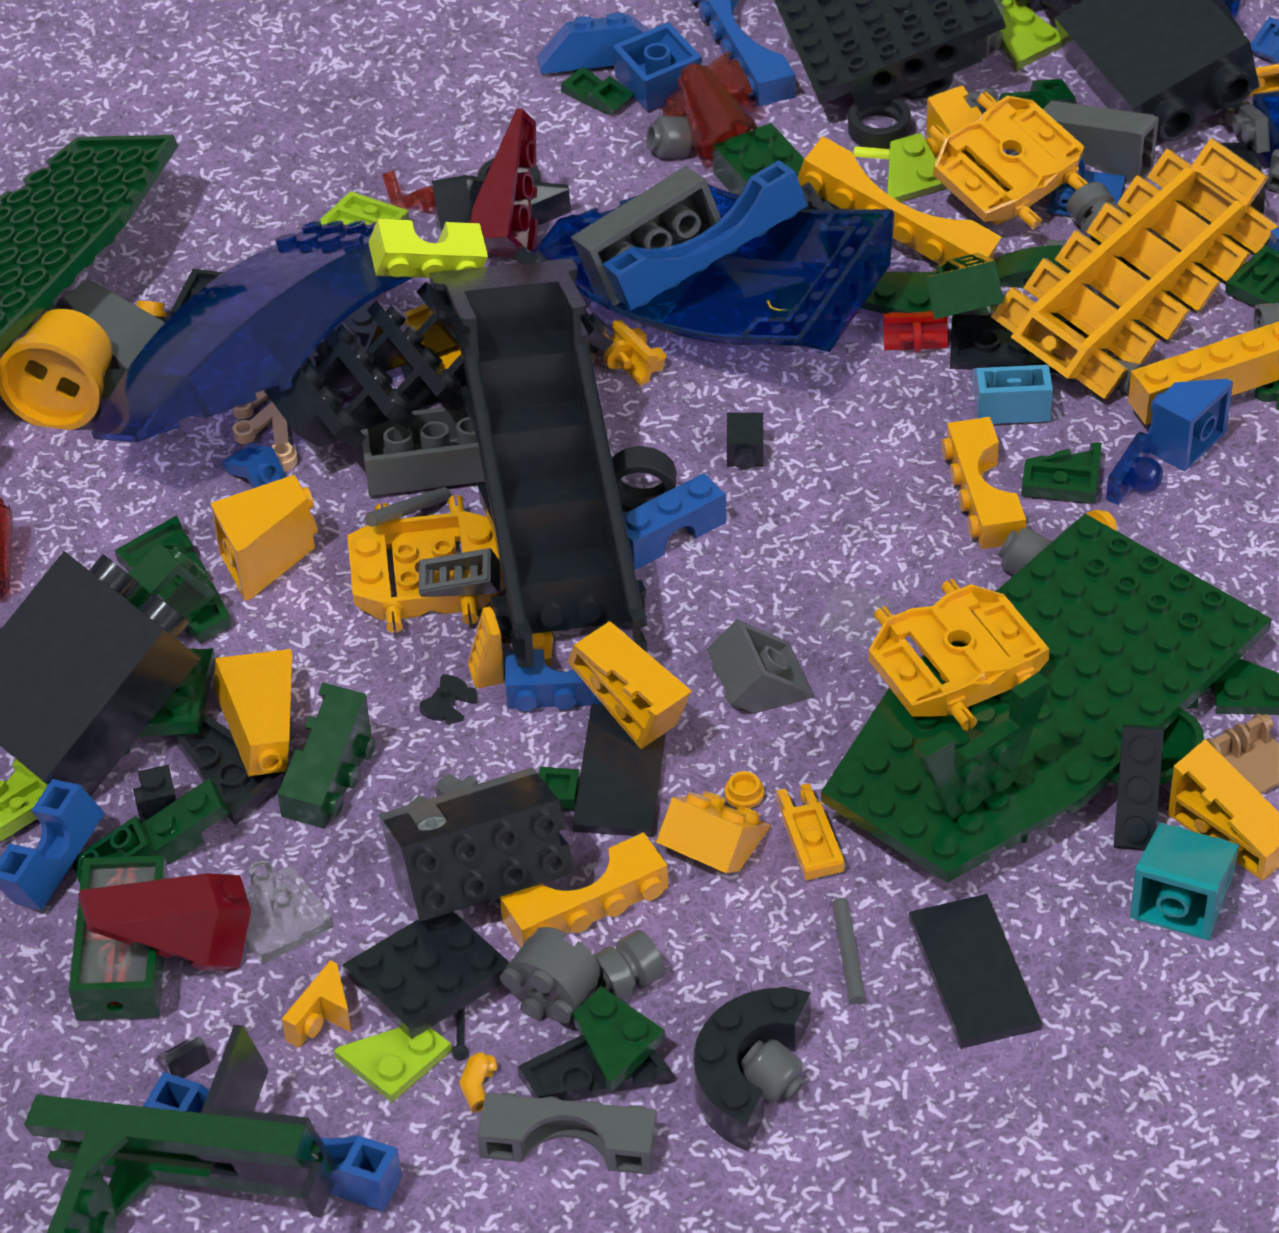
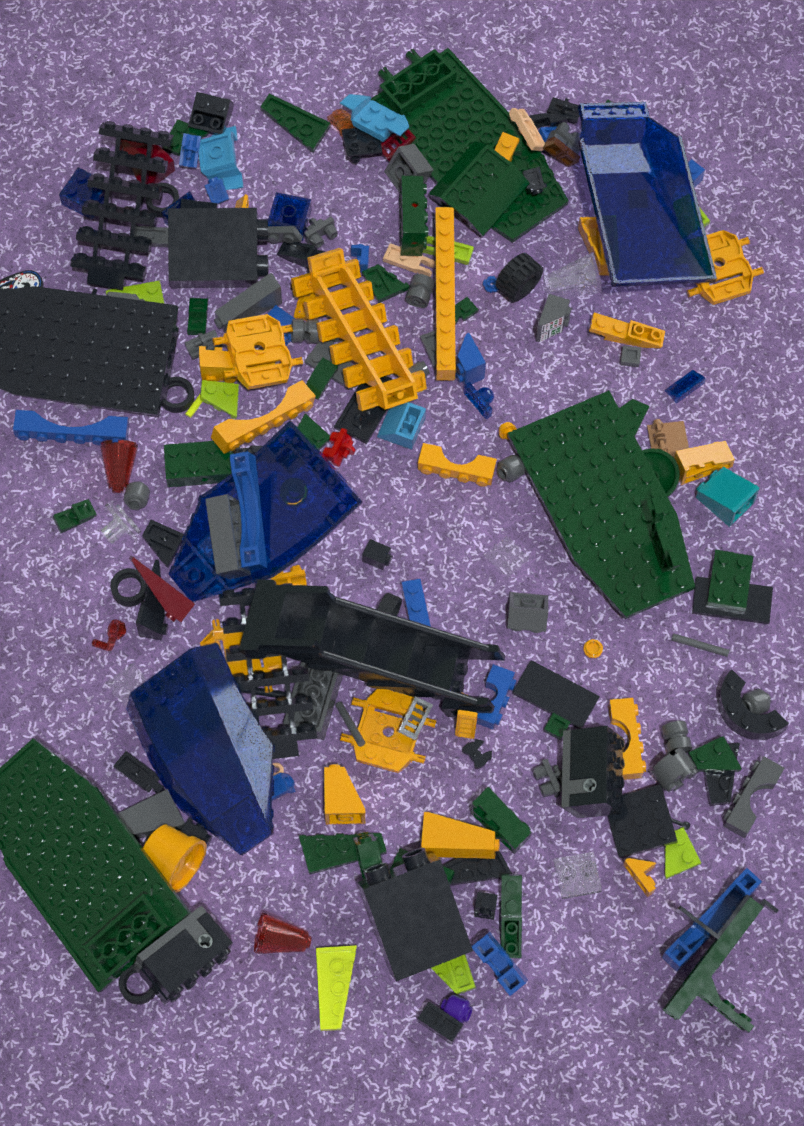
camera: 70 degrees left, 20 degrees up
(108, 975) = (567, 947): dark green brick -> none
(154, 308) = (132, 798): light orange plate -> none
(180, 916) = (579, 917): dark red wedge -> none
(184, 1057) = (639, 944): black slope -> none
(358, 207) = (117, 668): lime wing -> none
(402, 253) = (216, 656): neon yellow arch -> none
(476, 1070) = (705, 825): light orange arm -> none
(587, 42) = (38, 499): blue wedge -> none
(606, 130) = (120, 525): none -> clear plate
(611, 187) = (163, 541): none -> black wing
(629, 683) = (529, 668): light orange wedge -> none
(653, 63) = (80, 478): blue slope -> none
(710, 110) = (146, 468): clear red cone -> none
(712, 831) = (615, 671): light orange slope -> none
(810, 834) = (630, 631): light orange hinge -> none
(964, 286) = (339, 410): dark green wedge -> none
(997, 658) = (577, 503): light orange piece -> none
(1008, 943) = (730, 580): none -> dark green plate
(1063, 475) = (466, 428): dark green wing -> none
(1138, 785) = (678, 489): black plate -> none

